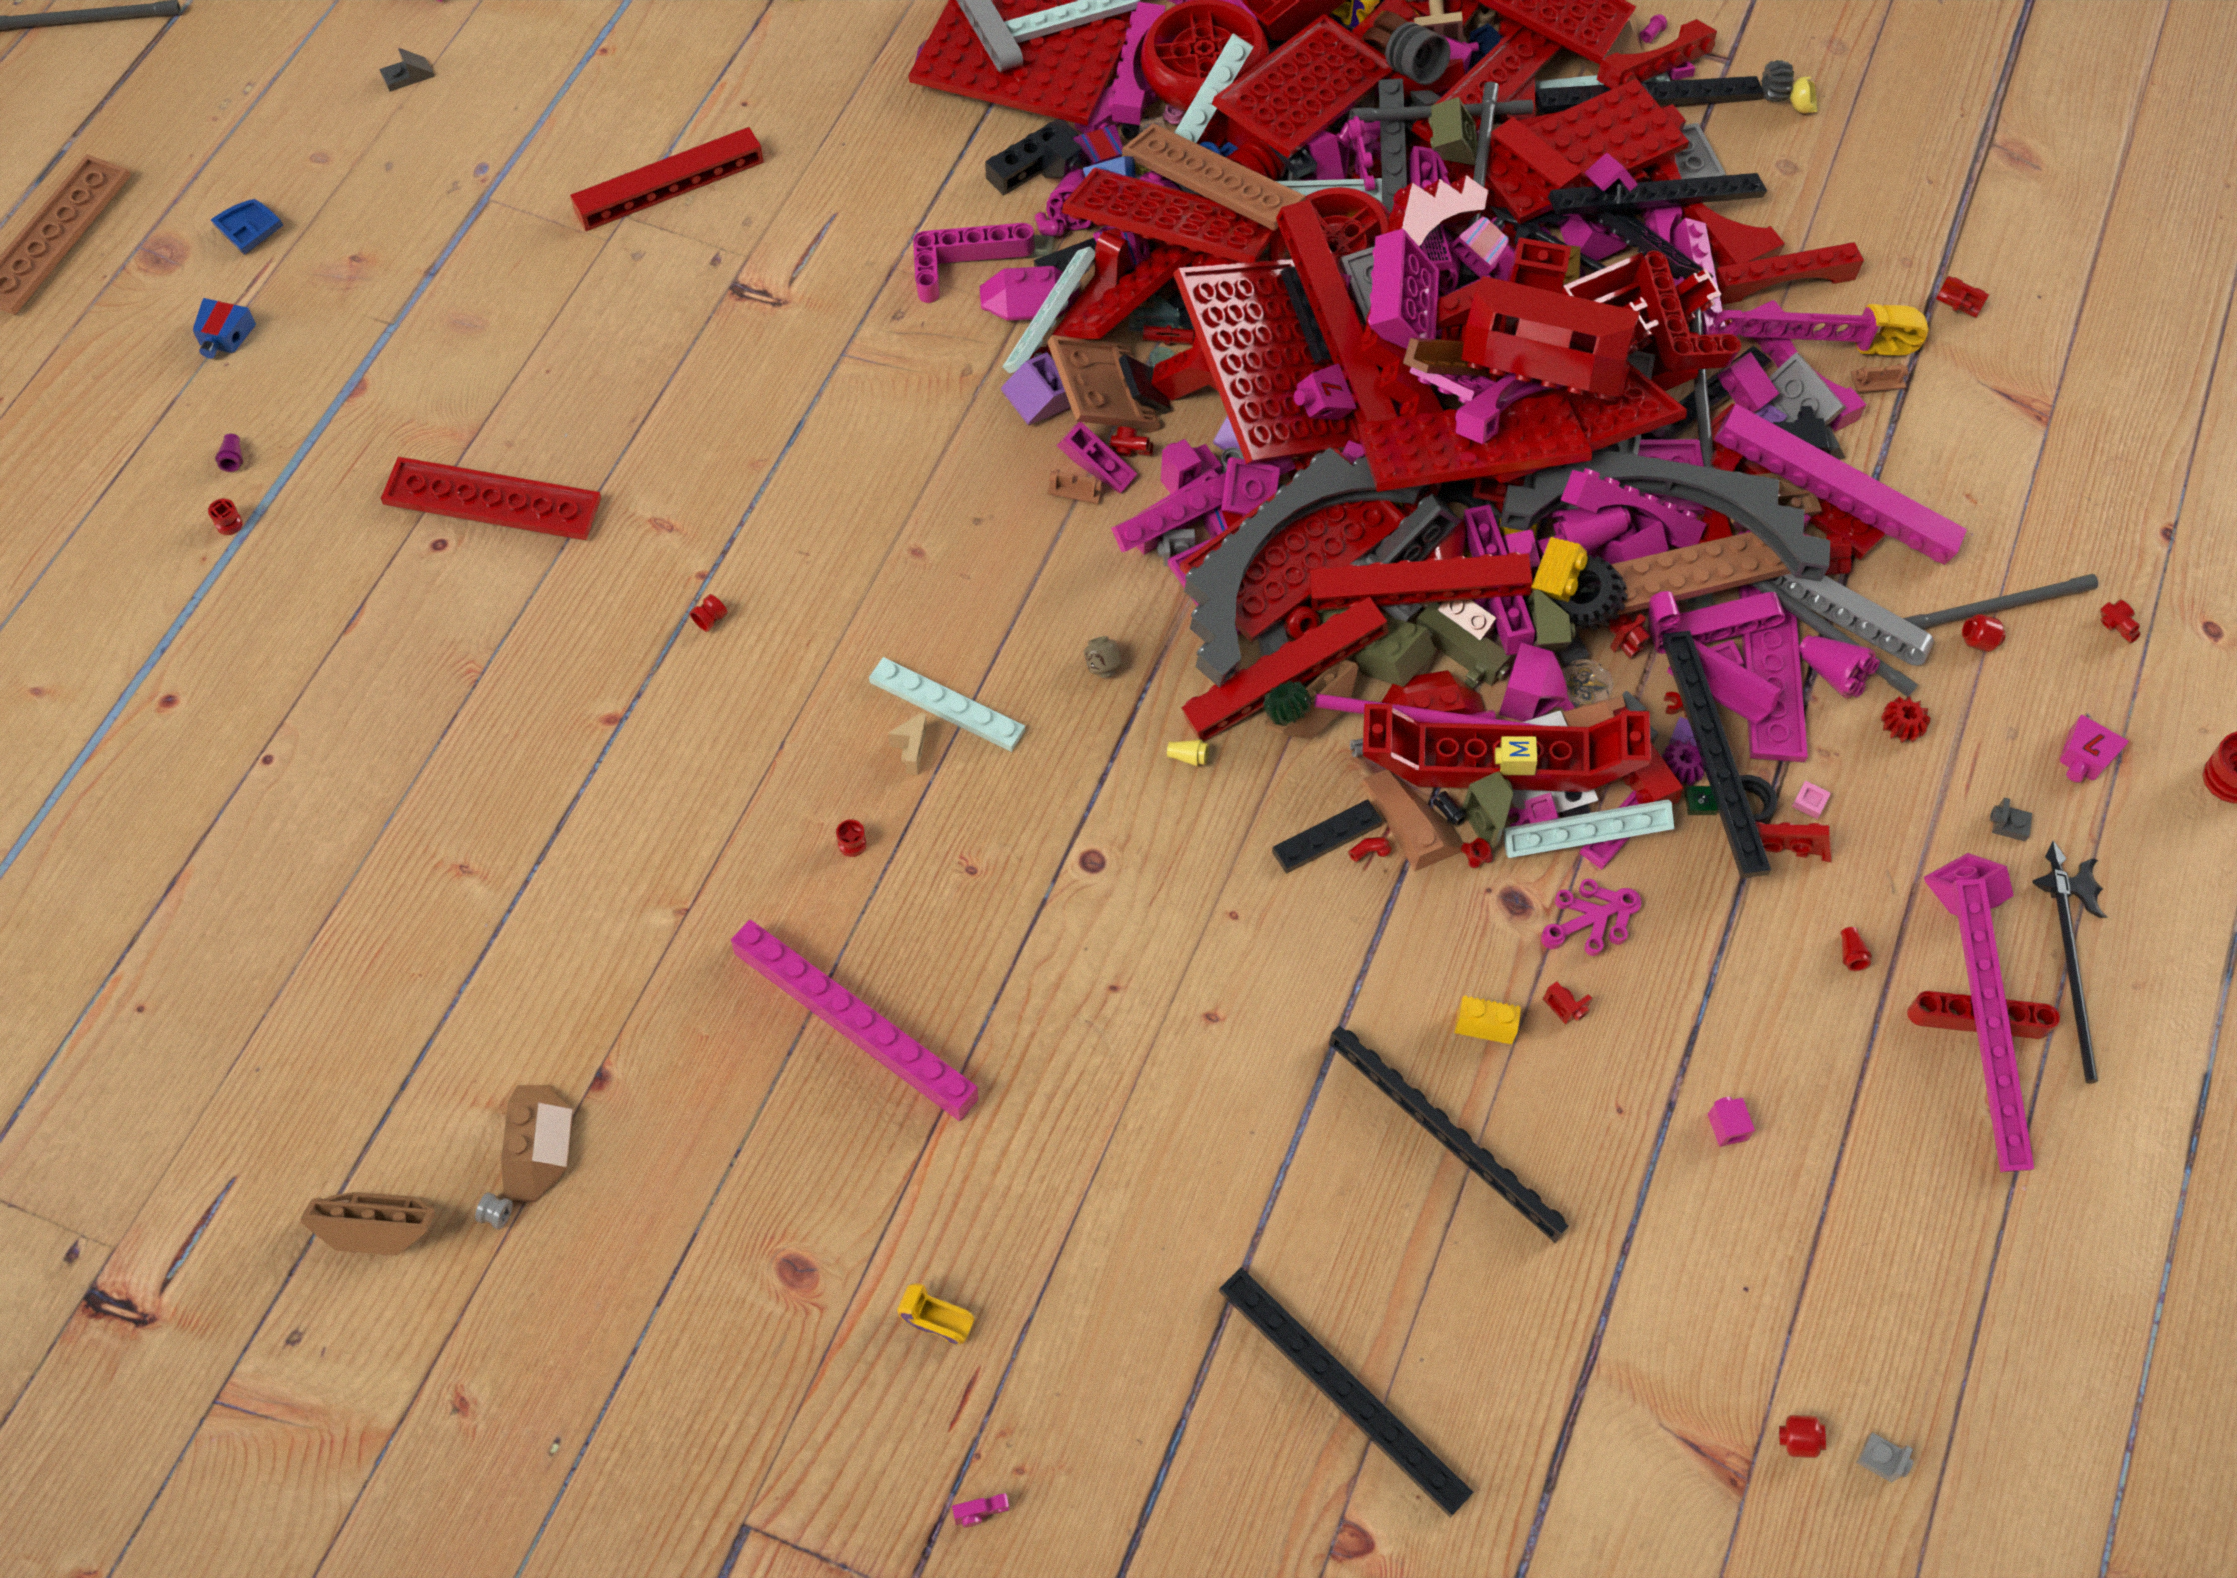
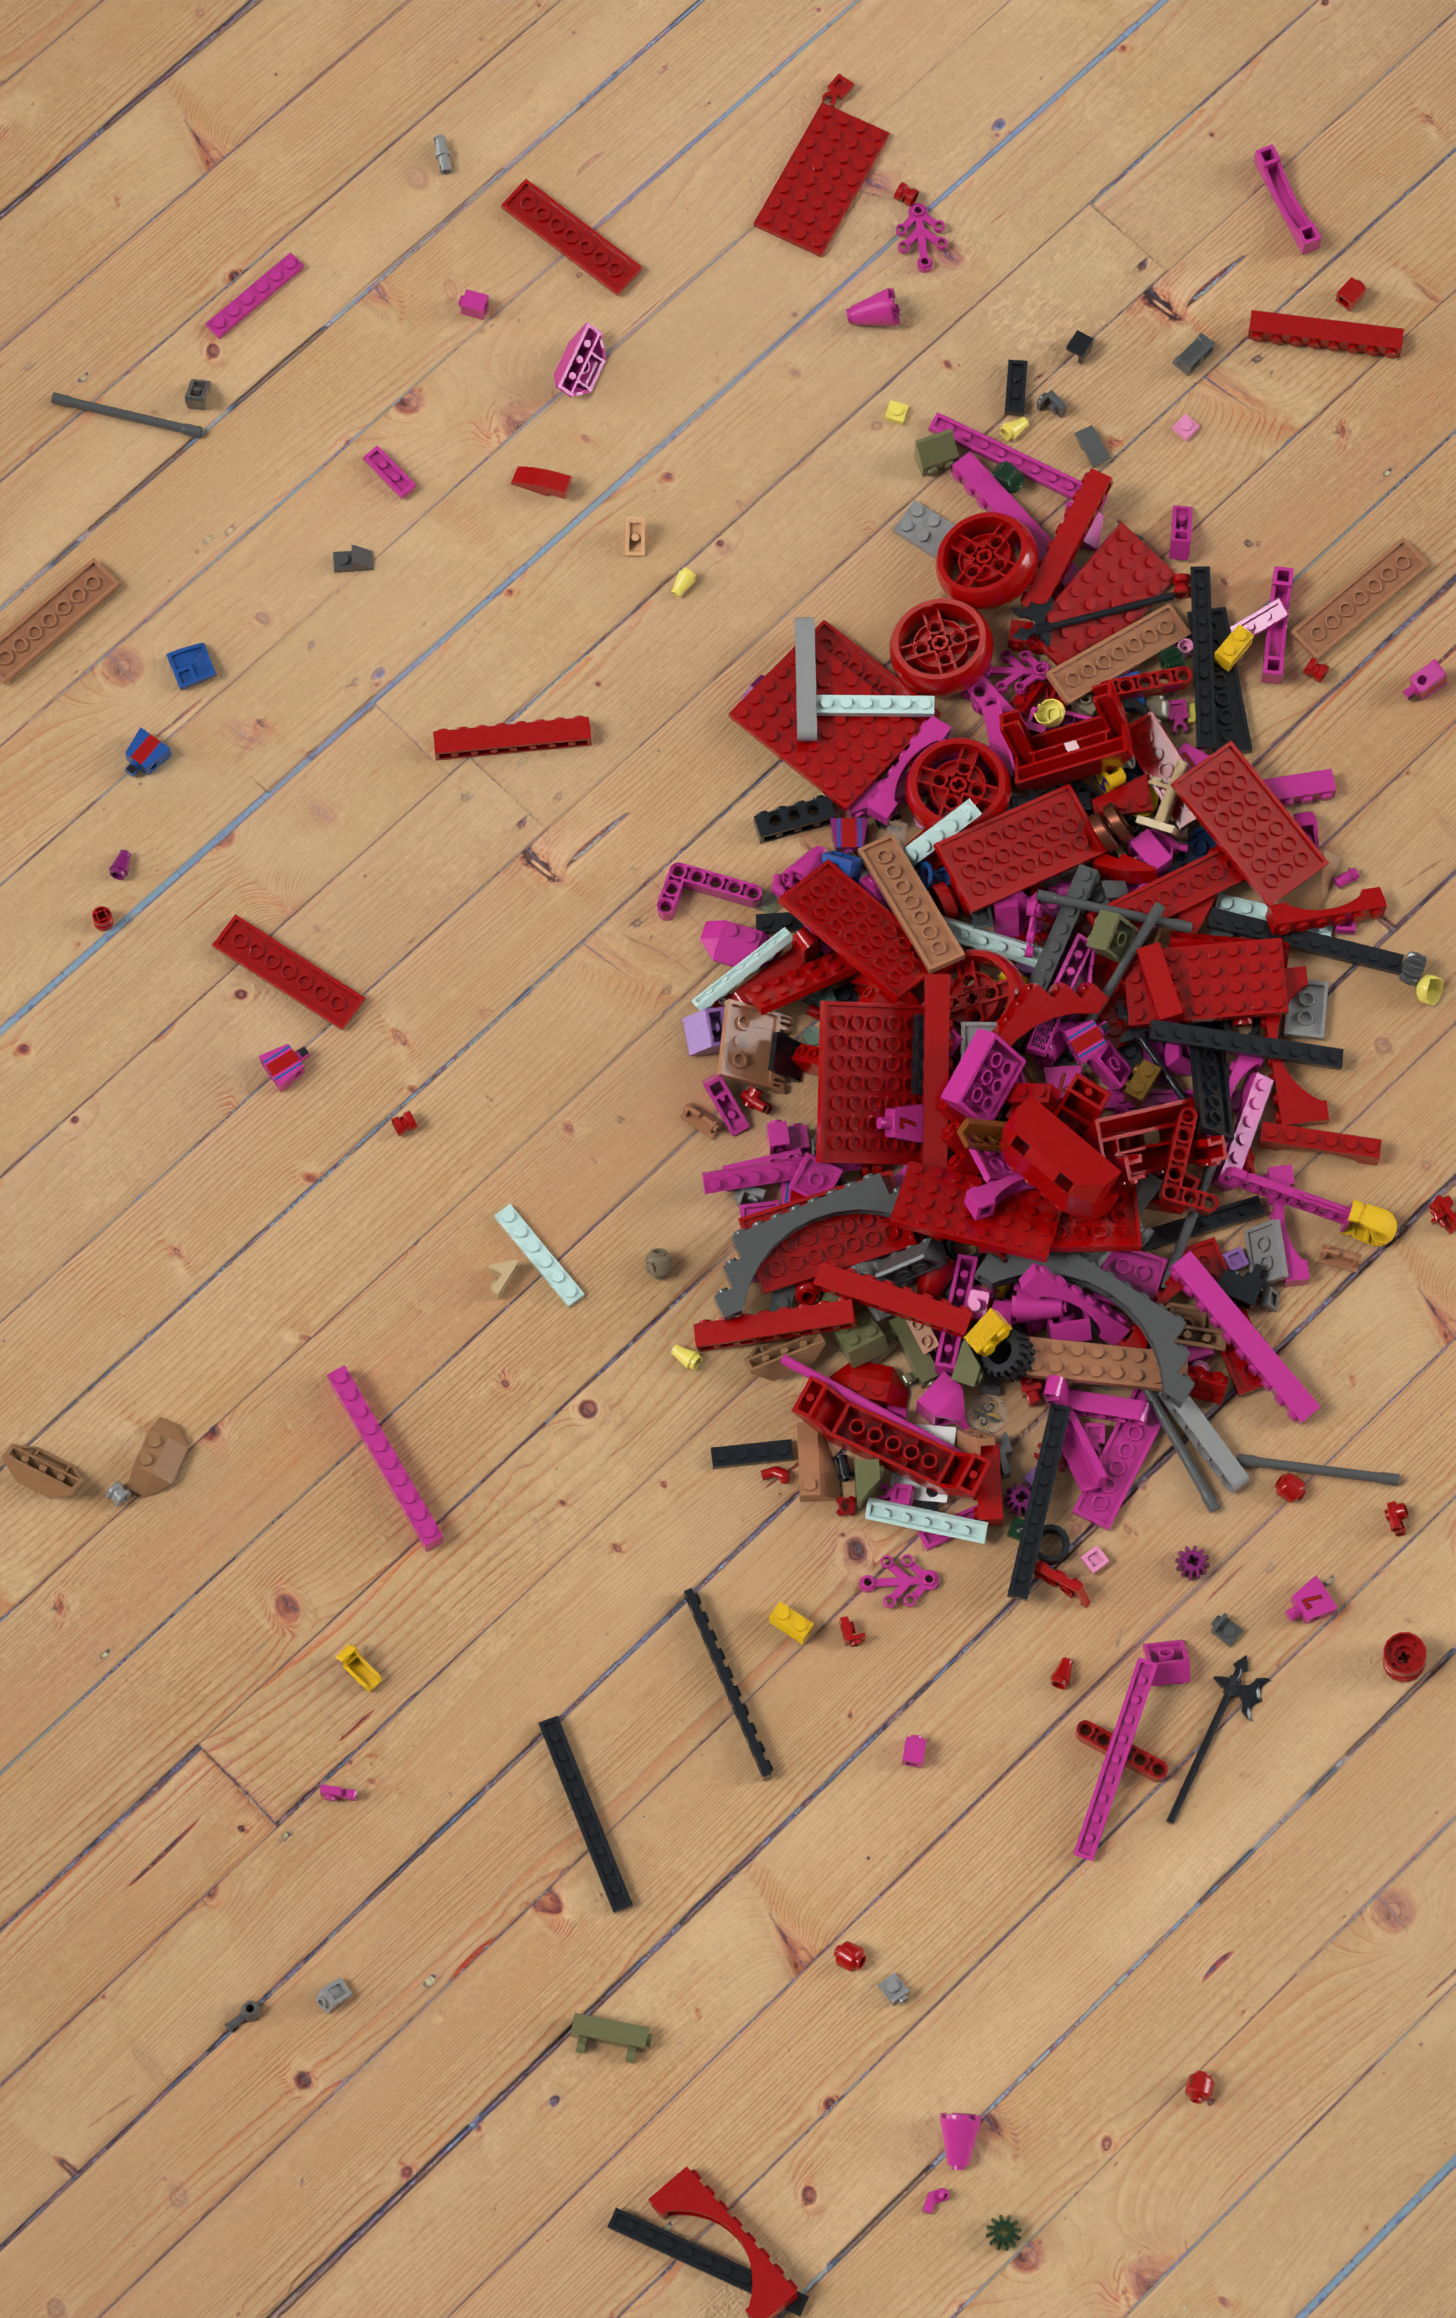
camera: 25 degrees right, 10 degrees up
(525, 600) = (284, 1065): none -> torso
(850, 831) = (435, 1327): red wheel -> none
(1060, 155) = (812, 834): black slope -> none
(1287, 703) = (762, 1352): clear green gear -> none
(1417, 53) = (1116, 855): dark grey wheel -> none
(1517, 755) = (894, 1453): light yellow brick -> none
(1607, 171) = (1207, 1020): dark pink panel -> none
(1748, 383) = (1229, 1228): dark pink brick -> none
(1840, 663) = (1170, 1471): dark pink cone -> none
(1905, 719) = (1201, 1535): red gear -> none
(1926, 758) = (1185, 1557): none -> magenta gear

